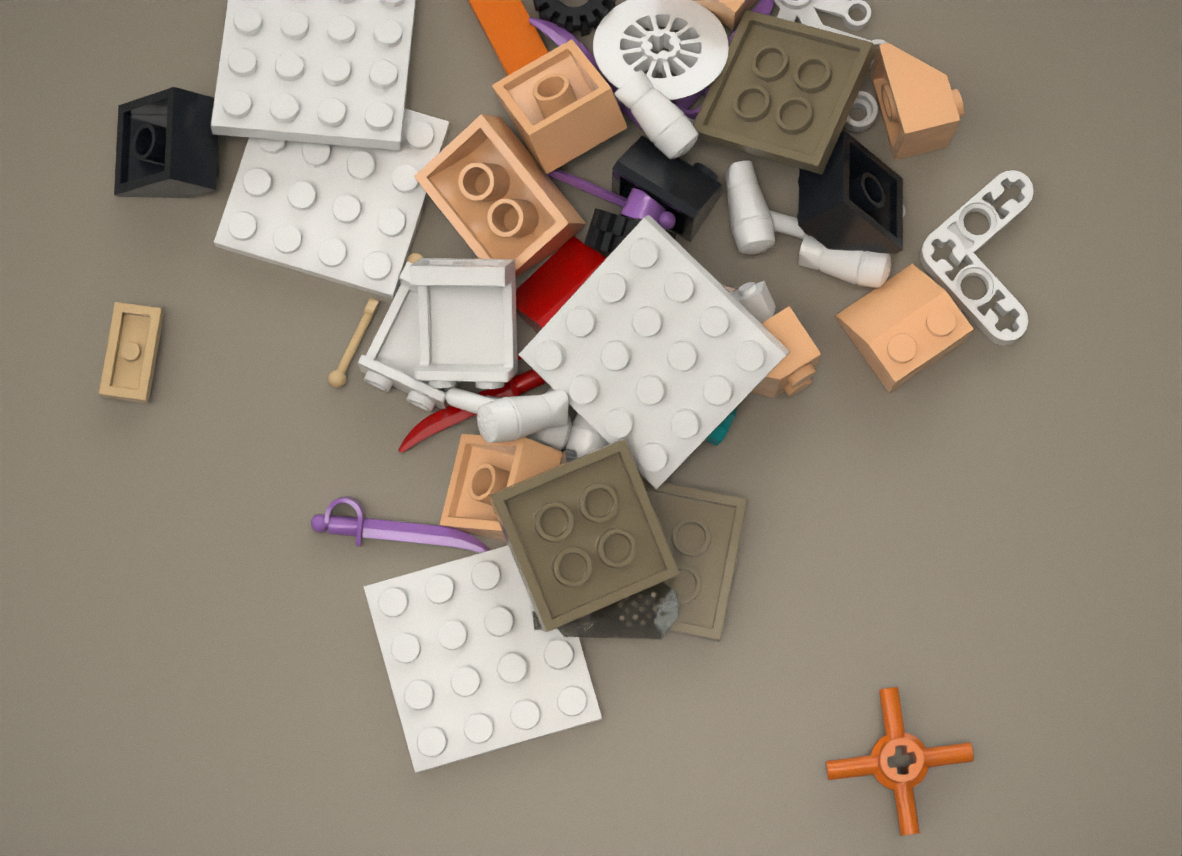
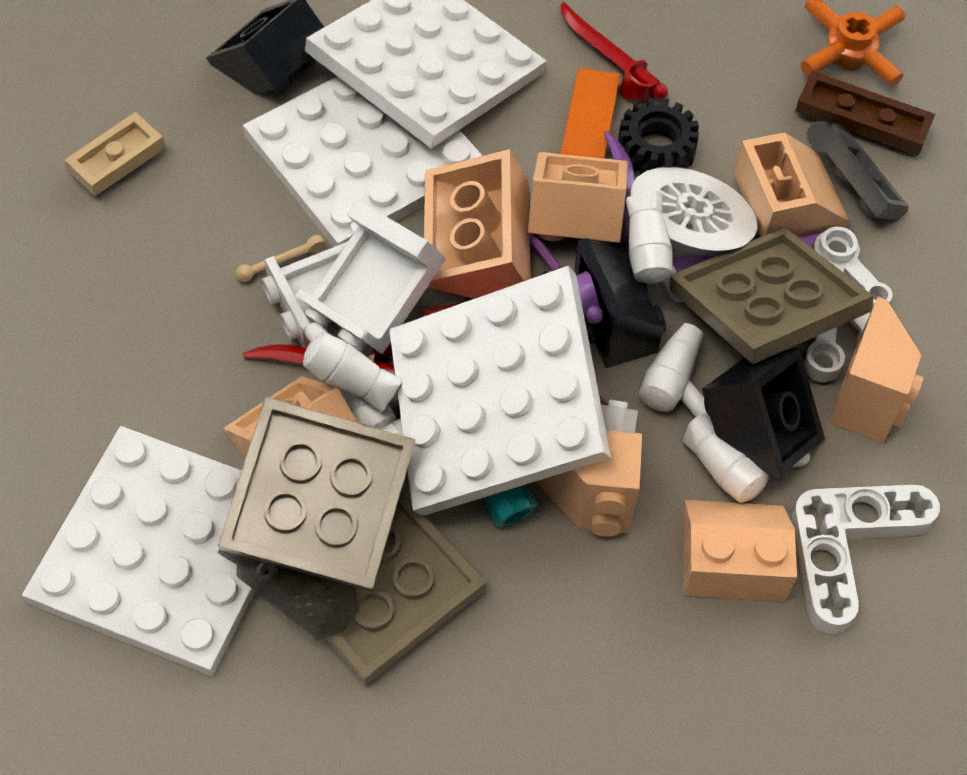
camera: 35 degrees right, 20 degrees down
(391, 530) = (163, 385): medium lavender sword -> none

